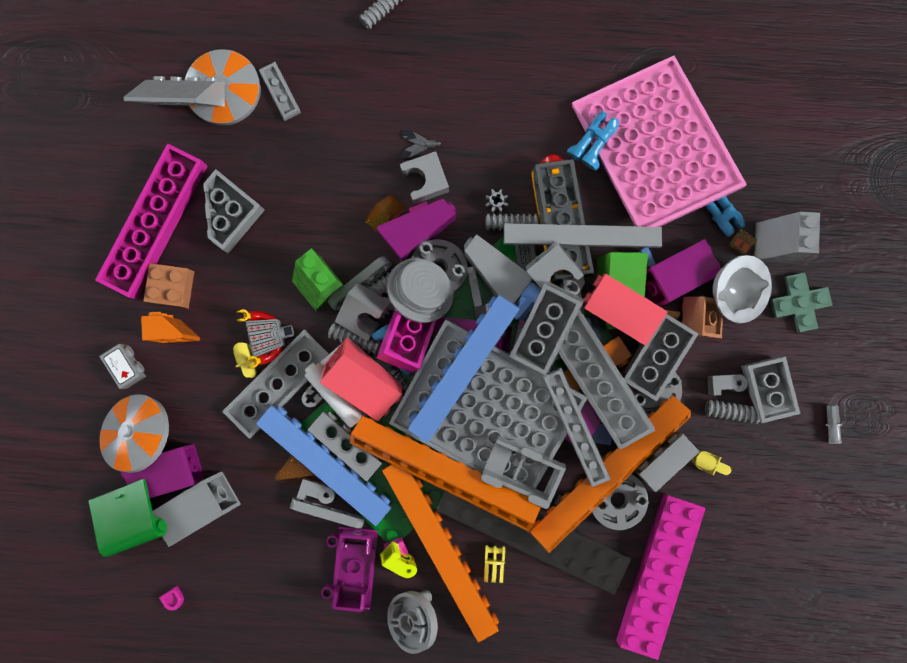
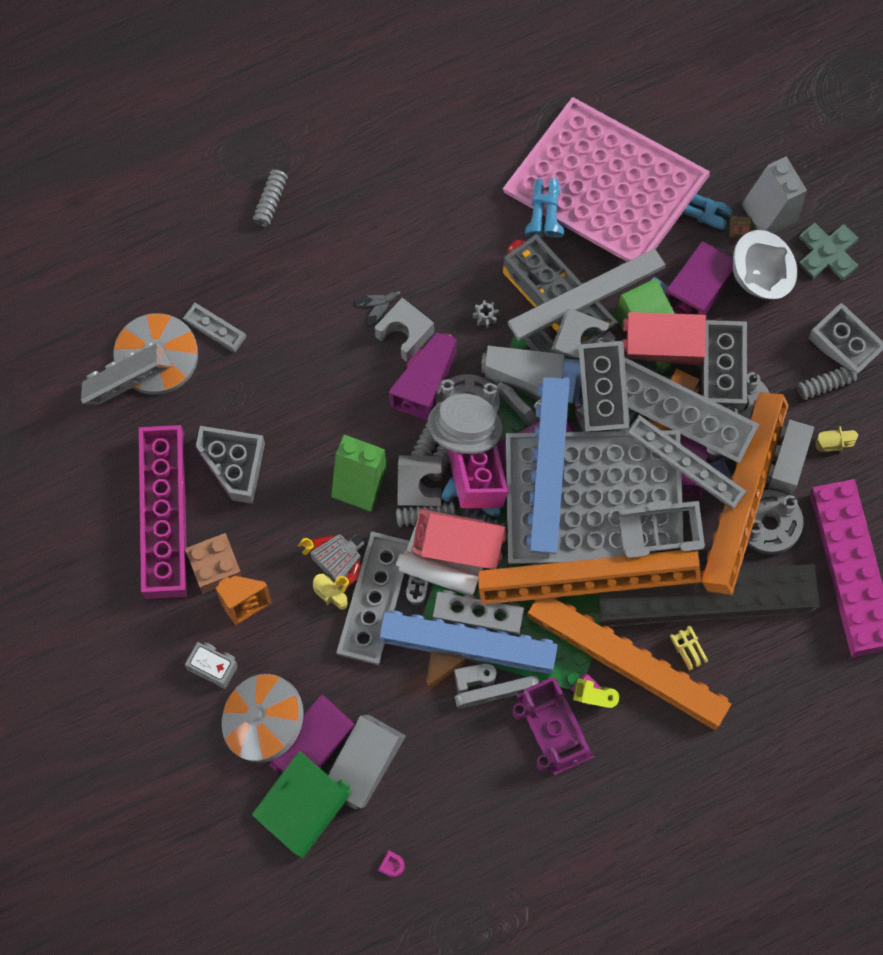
camera: 30 degrees left, 15 degrees down
(365, 278) = (403, 447): light grey beam -> none
(384, 212) = (383, 381): clear orange slope -> none
(423, 618) = (659, 739): light grey piece -> none
(497, 222) = (501, 330): light grey piece -> none
(702, 316) = (745, 307): nougat slope -> none
(722, 382) = (803, 359): light grey leg -> none

